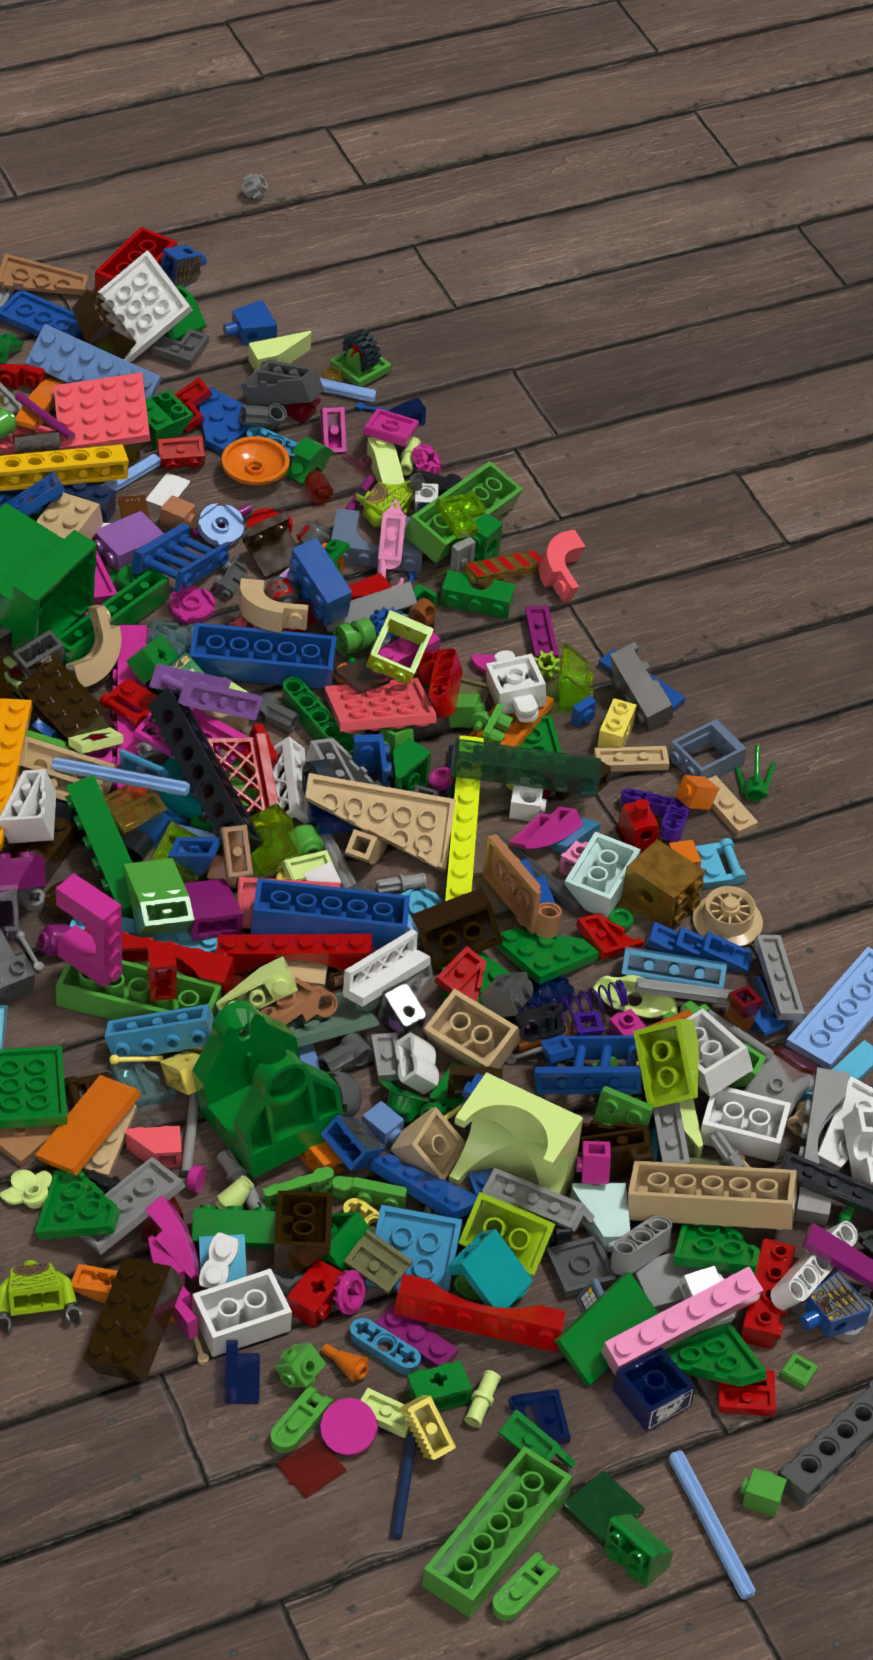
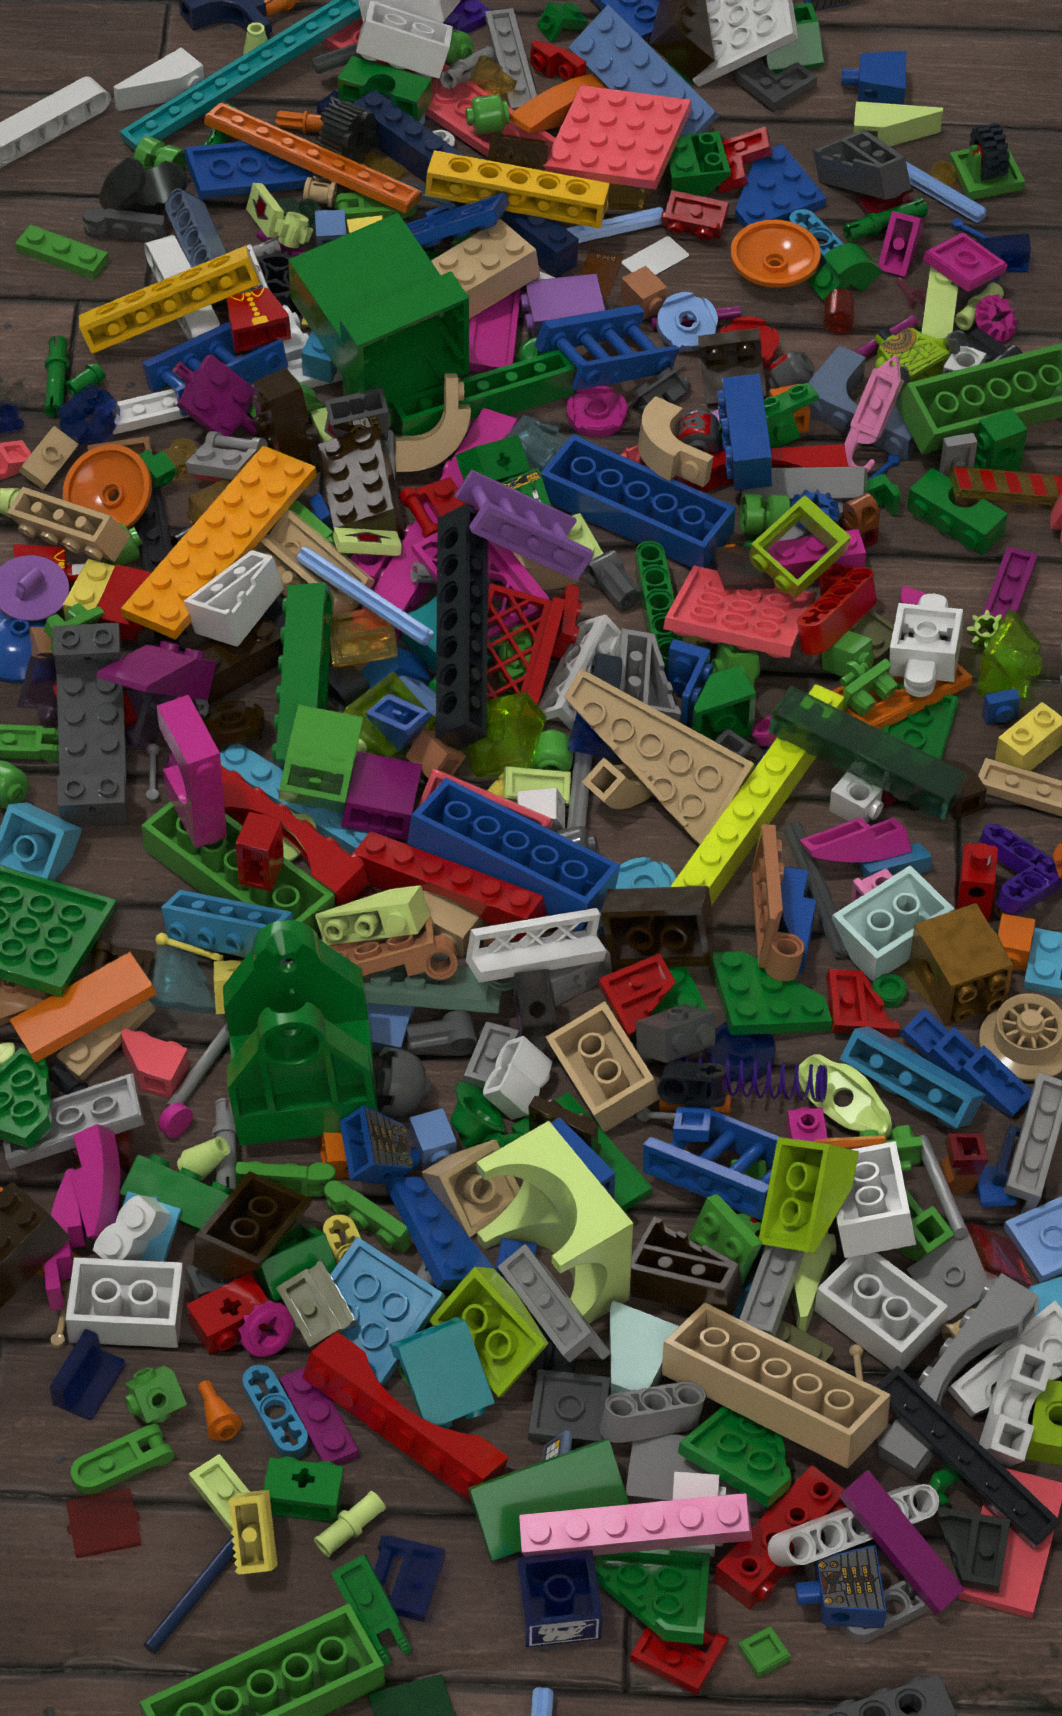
camera: 30 degrees right, 5 degrees up
(43, 415) = (545, 121): magenta bar -> none
(137, 764) = (402, 594): dark azure slope -> none
(236, 851) = (442, 735): medium nougat slope -> none
(262, 416) = (817, 198): dark grey piece -> none
(307, 421) = (875, 223): none -> green pin
(349, 1427) = (169, 1492): dark pink tile -> none
(401, 883) = (639, 846): light grey axle -> none
(458, 512) = (971, 394): clear neon green plate -> none
(578, 1018) = (751, 1117): dark purple brick -> none
(594, 1162) = (647, 1285): dark pink brick -> none
(682, 991) = (898, 1107): light grey axle -> none
(728, 1154) = (835, 1339): light grey axle -> none

